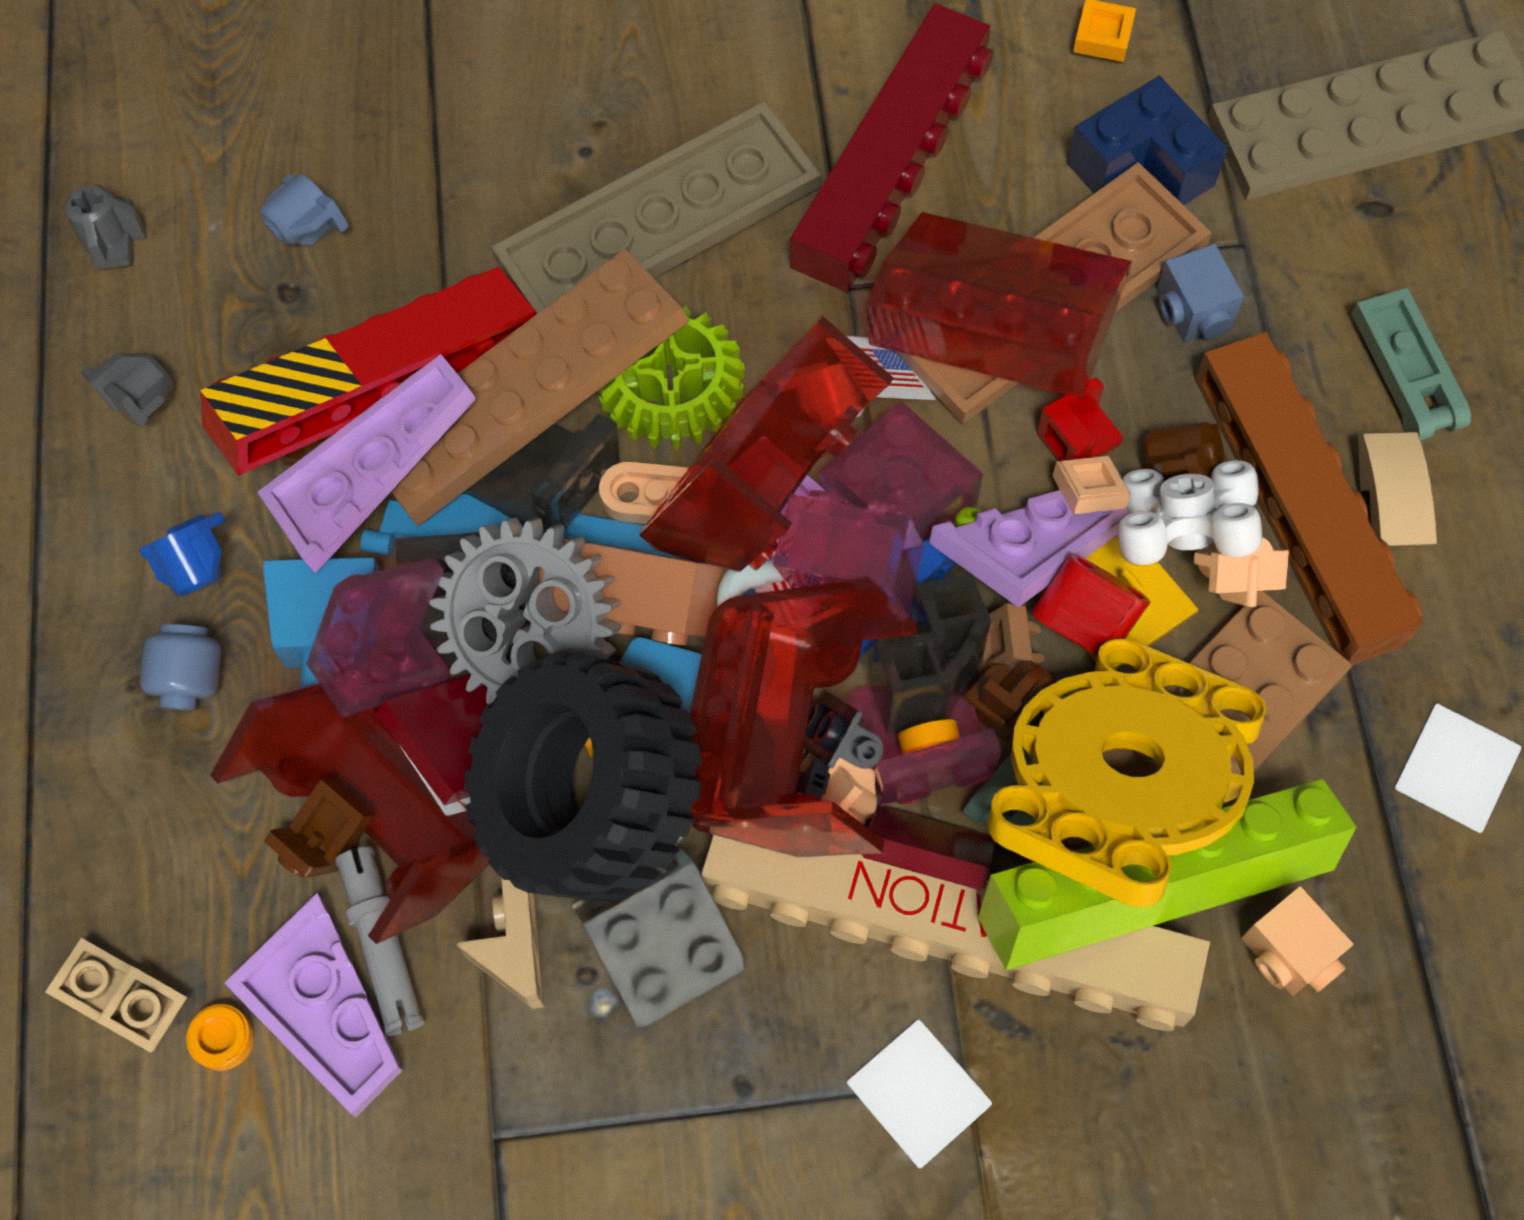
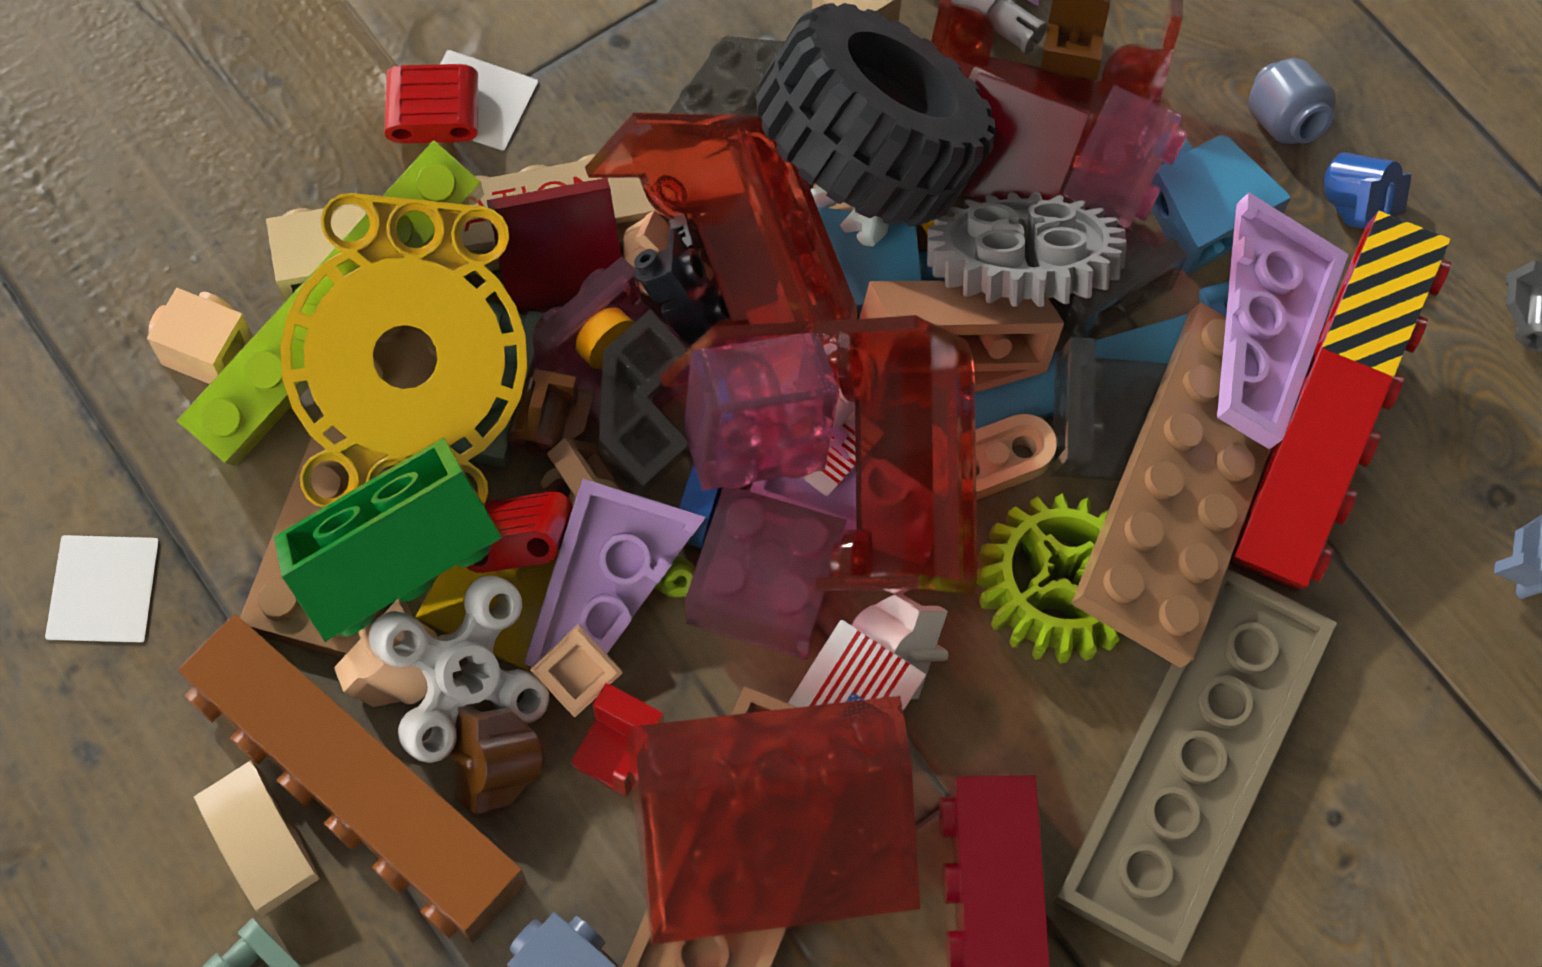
camera: 145 degrees right, 0 degrees up
(970, 1094) = (431, 103): none -> red piece
(1216, 607) = (385, 541): none -> green brick

